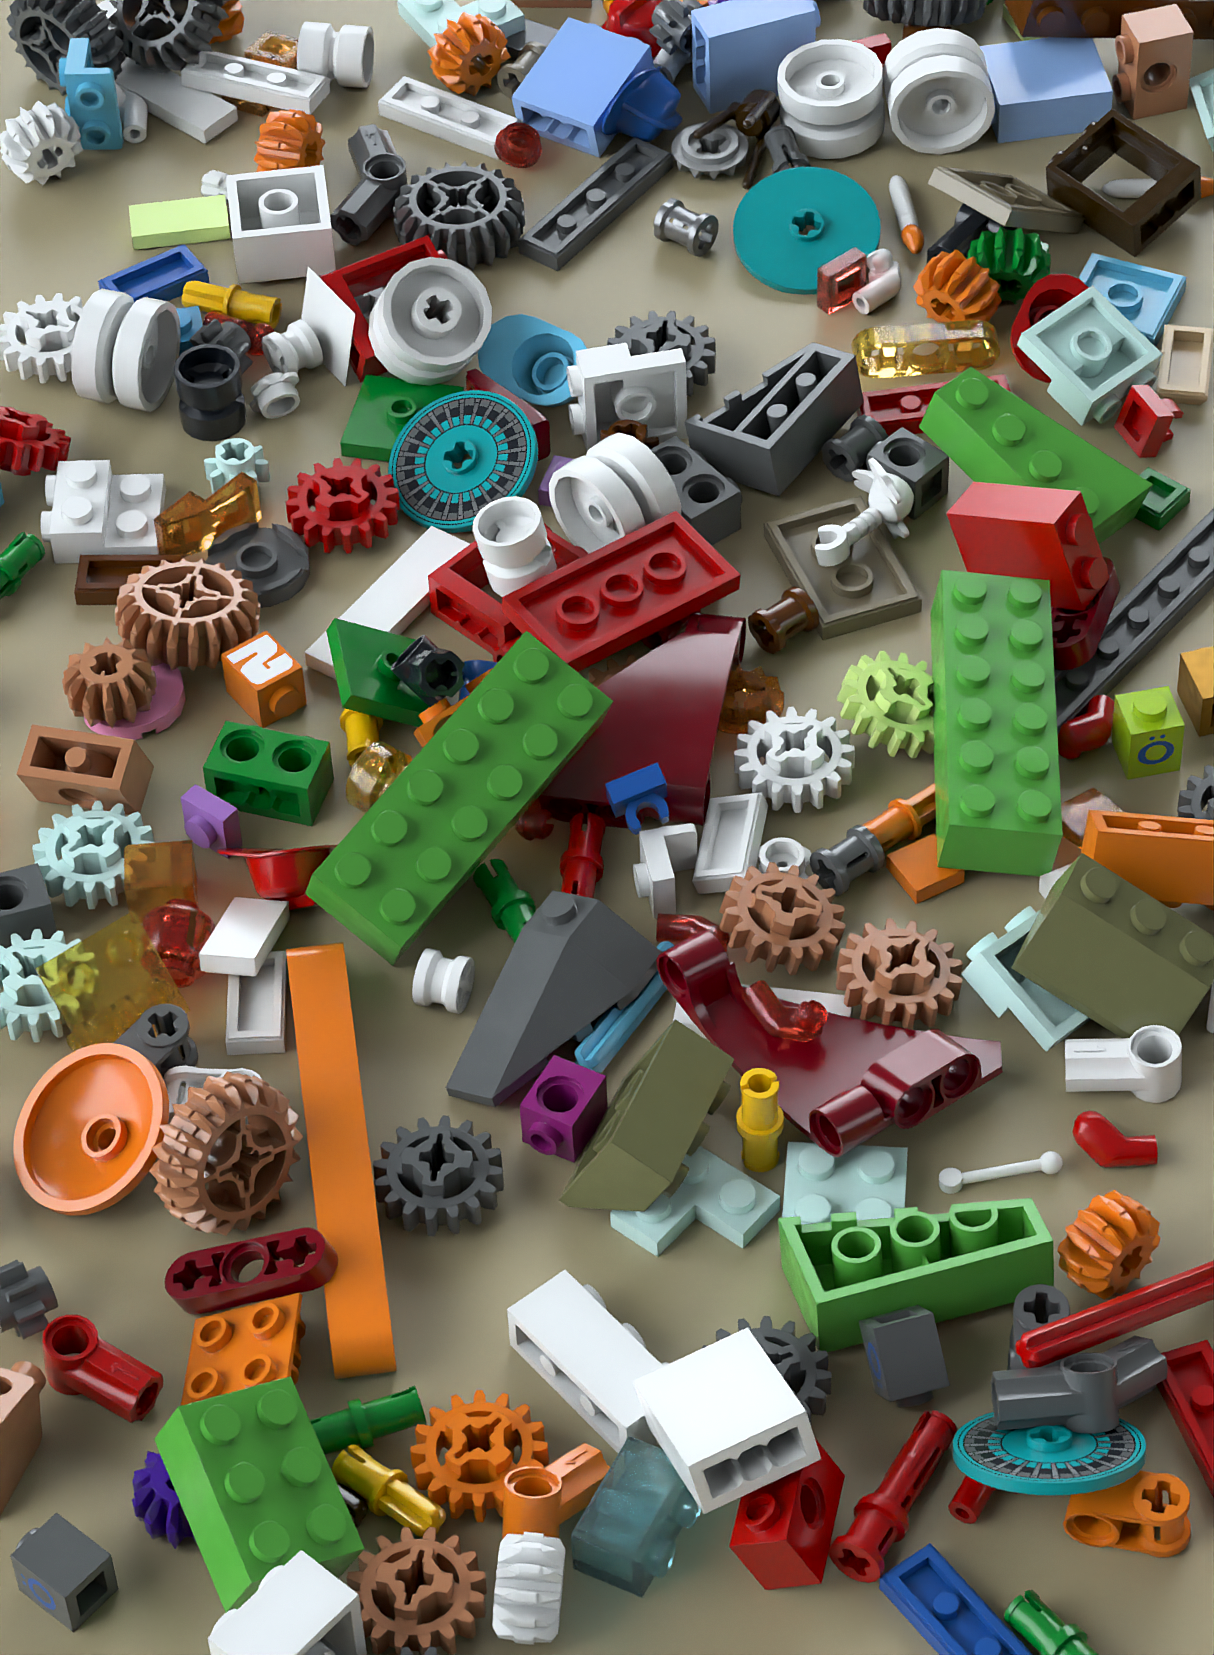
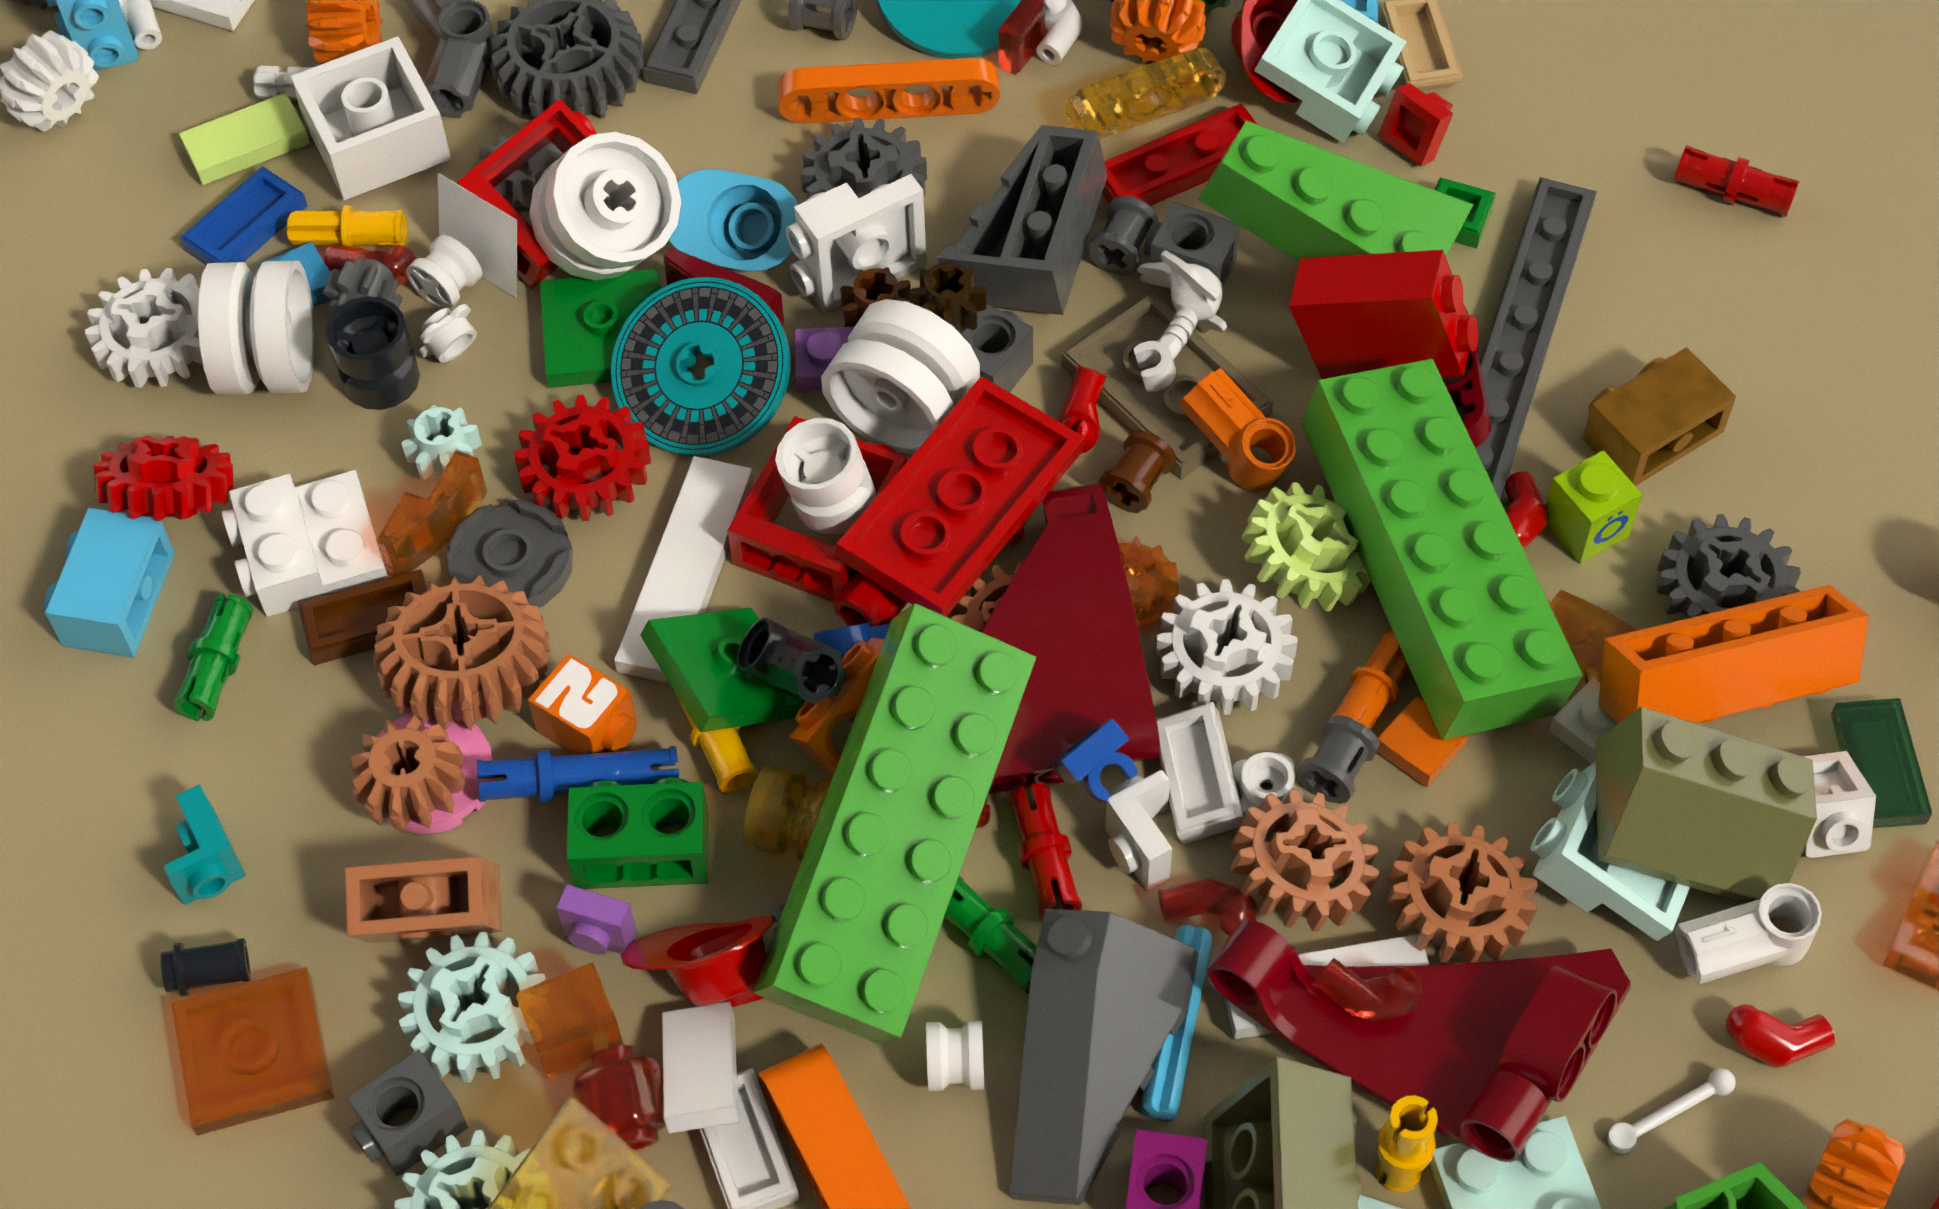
camera: 20 degrees left, 10 degrees up
(213, 711) = (556, 774): none -> blue pin
(677, 447) = (950, 294): none -> dark brown gear
(711, 293) = (888, 84): none -> orange beam
(758, 568) = (1080, 408): none -> red arm
(876, 605) = (1236, 425): none -> orange piece

